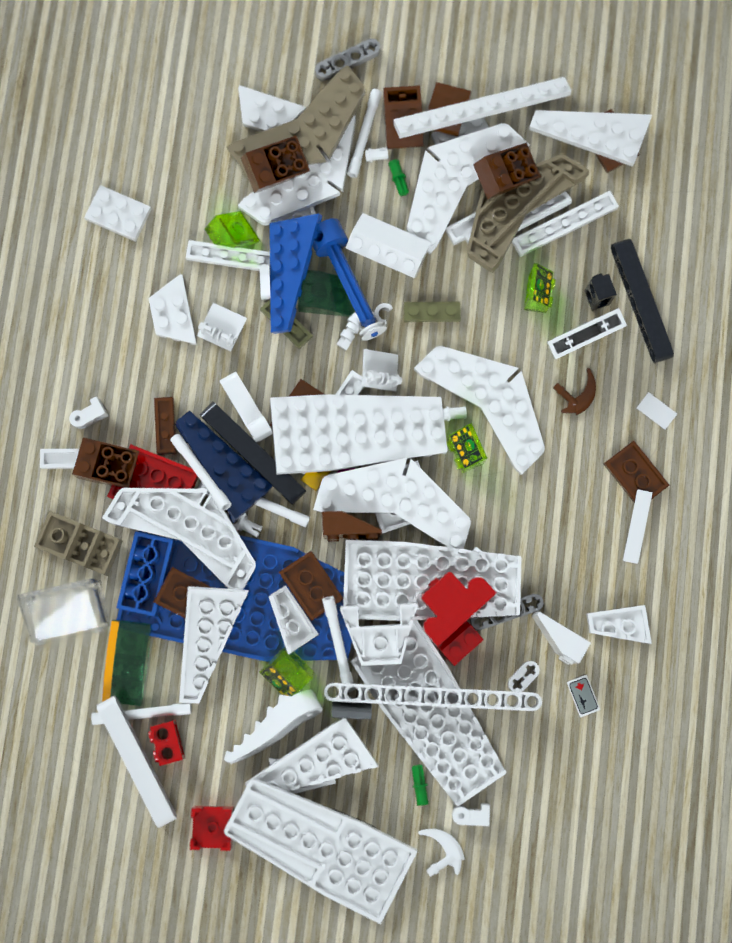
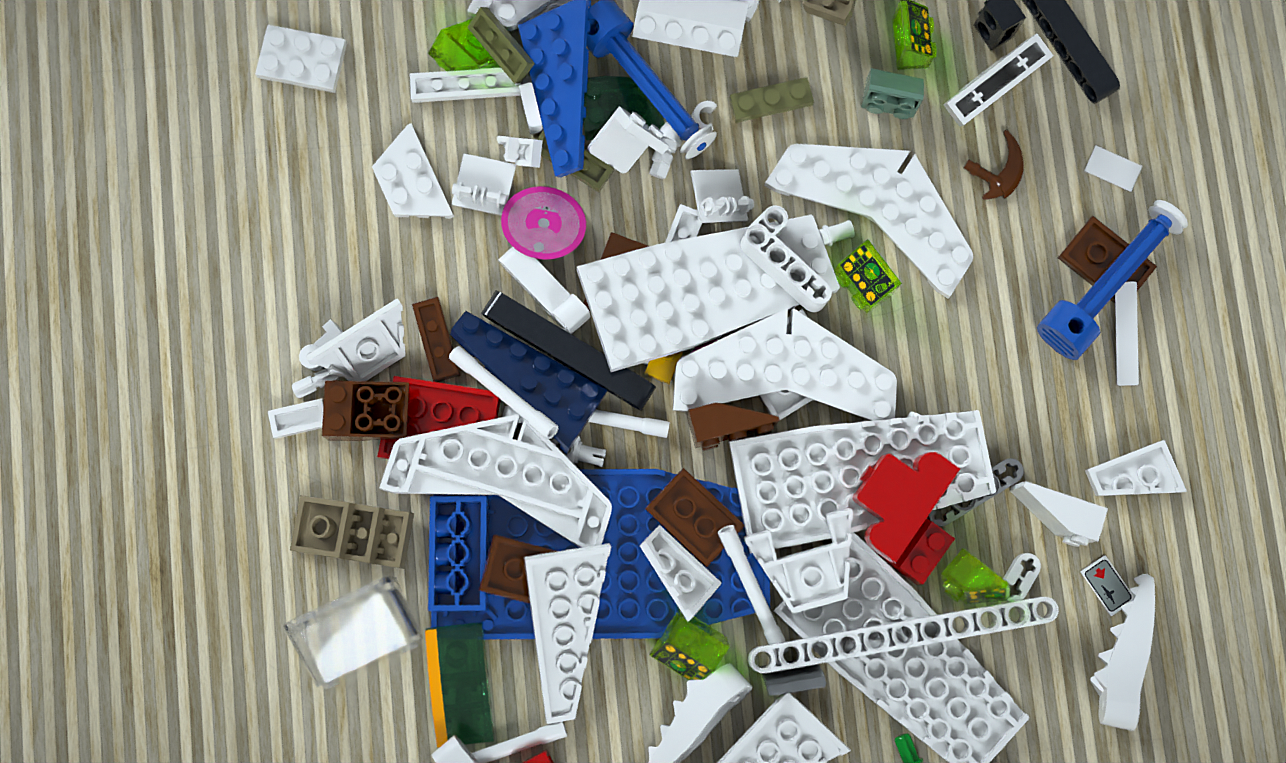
camera: 10 degrees left, 0 degrees up
(72, 437) = (309, 384): none -> white piece
(115, 420) = (365, 346): none -> white wing
(252, 310) = (521, 151): none -> white slope
(254, 234) = (500, 45): none -> olive plate
(256, 362) = (543, 222): none -> dark pink piece
(323, 318) = (625, 139): none -> white bracket
(415, 428) = (789, 263): none -> white beam
(488, 671) = (973, 581): none -> clear neon green slope
(515, 326) = (892, 94): none -> sand green slope
(583, 748) = (1126, 664): none -> white animal
(606, 508) = (1072, 327): none -> blue piece

